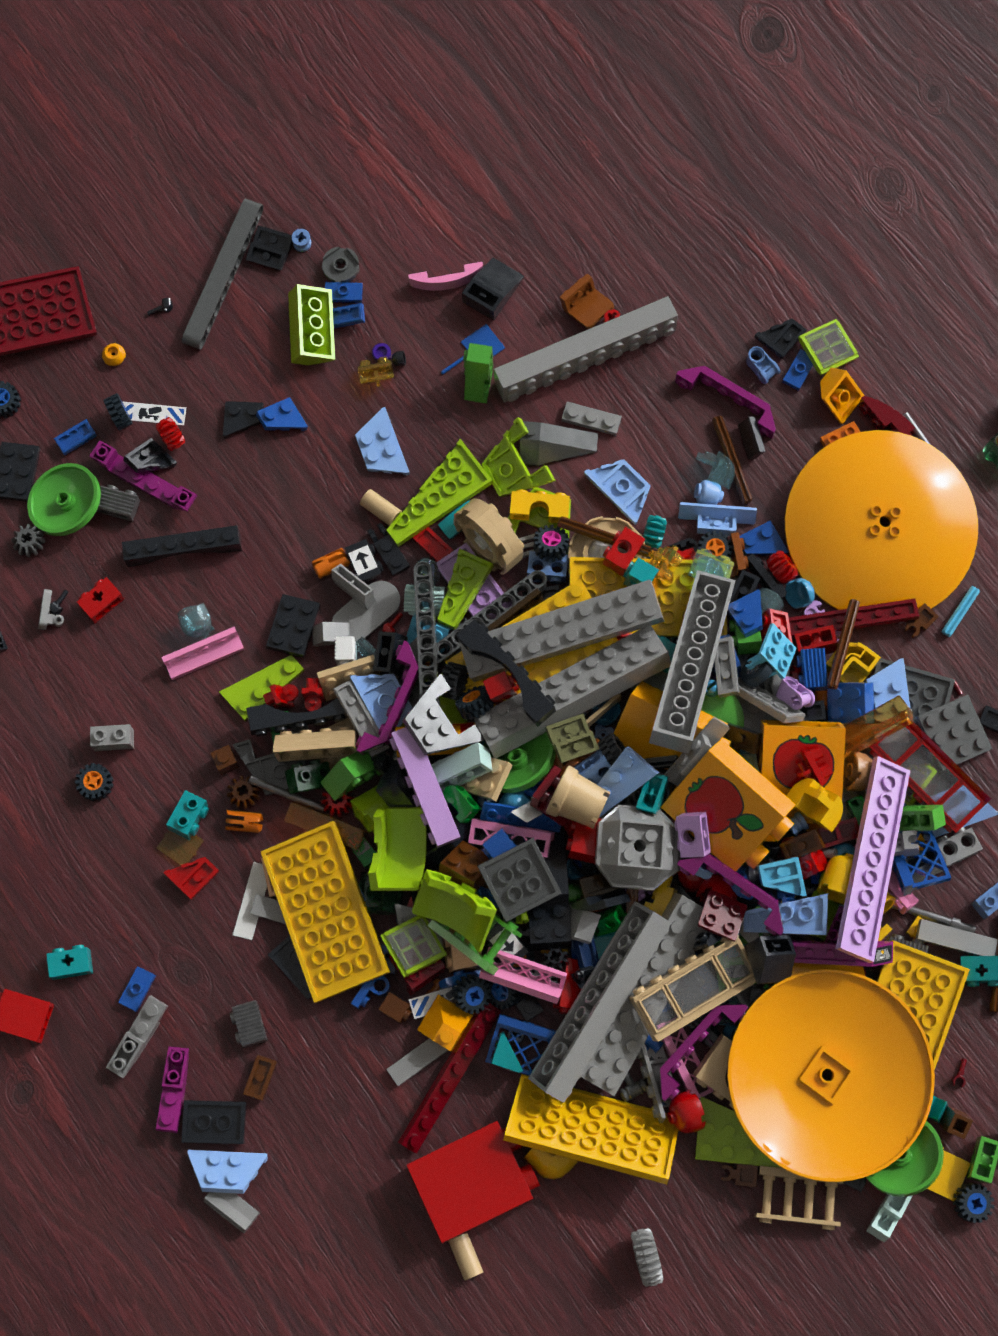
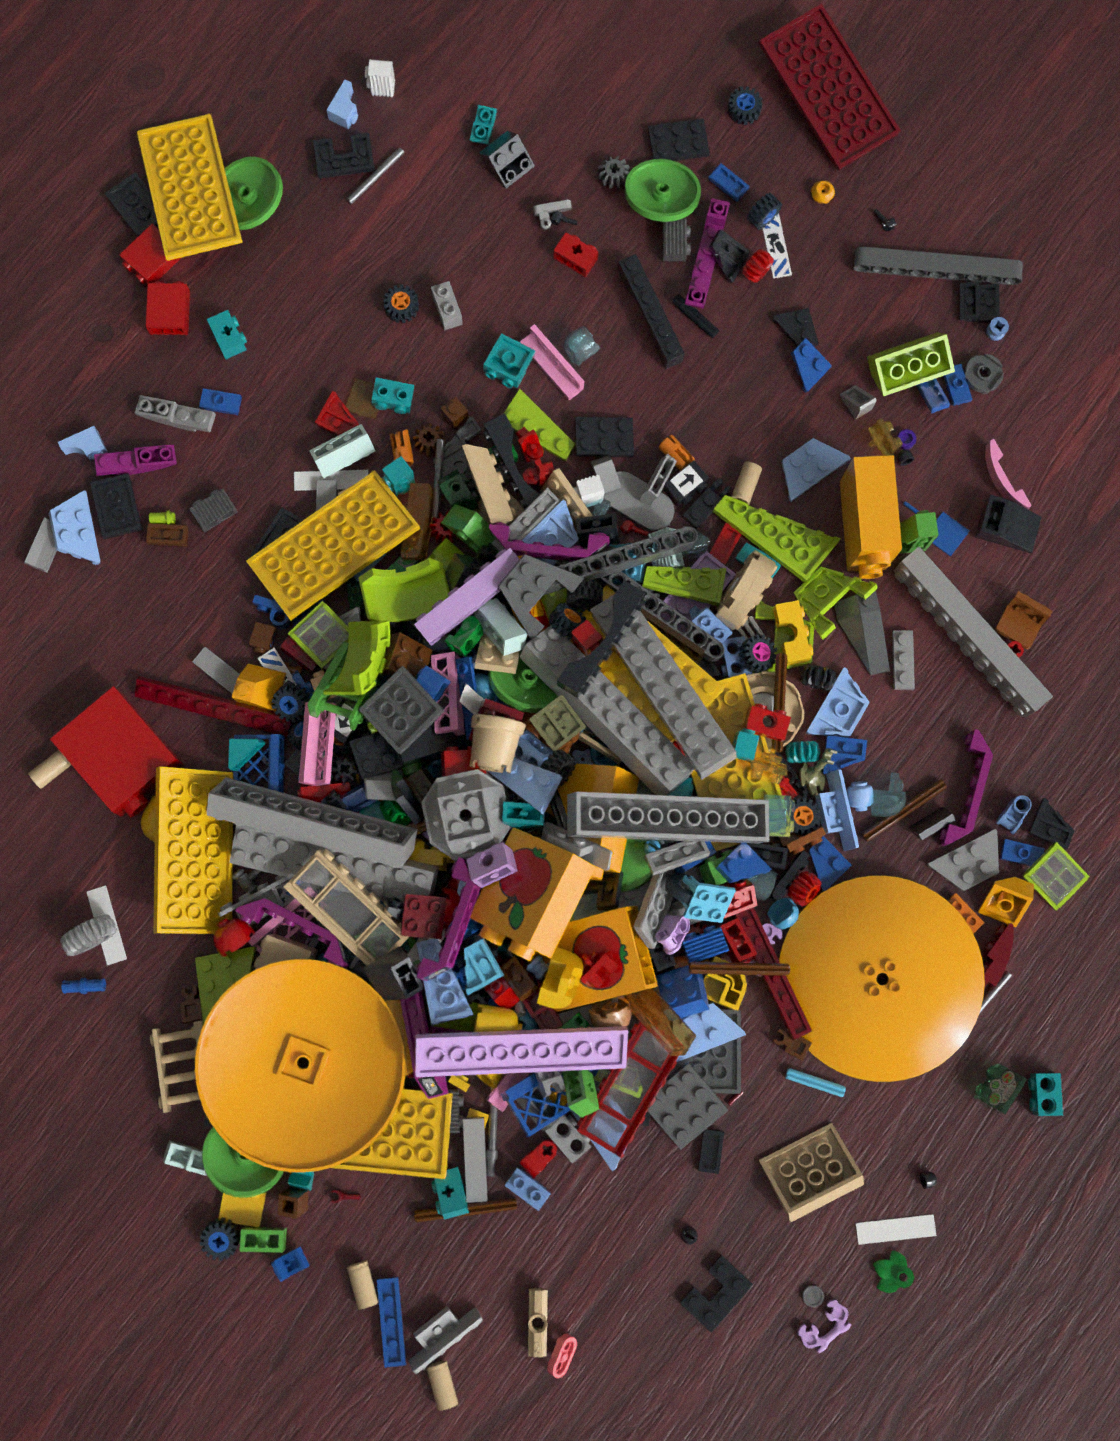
camera: 65 degrees right, 5 degrees up
(138, 1134) = (85, 442): none -> light blue arch
(189, 693) = (508, 361): none -> teal plate
(199, 506) = (699, 319): none -> black axle
(229, 878) = (342, 450): none -> light aqua brick
(241, 1078) = (162, 518): none -> lime pin
(274, 829) = (398, 476): none -> teal brick
(331, 384) = (858, 401): none -> light grey slope
(452, 402) = (870, 515): none -> light orange brick
(509, 577) = (710, 623): none -> medium blue bracket
(587, 497) = (818, 677): none -> black gear
(621, 1241) = (101, 905): none -> white sticker
(663, 497) = (848, 752): none -> blue wing
(678, 530) = (813, 776): none -> olive piece
(693, 1278) = (83, 985): none -> blue pin
(795, 417) = (970, 862): none -> light grey wing
(969, 881) = (536, 1160): none -> red piece

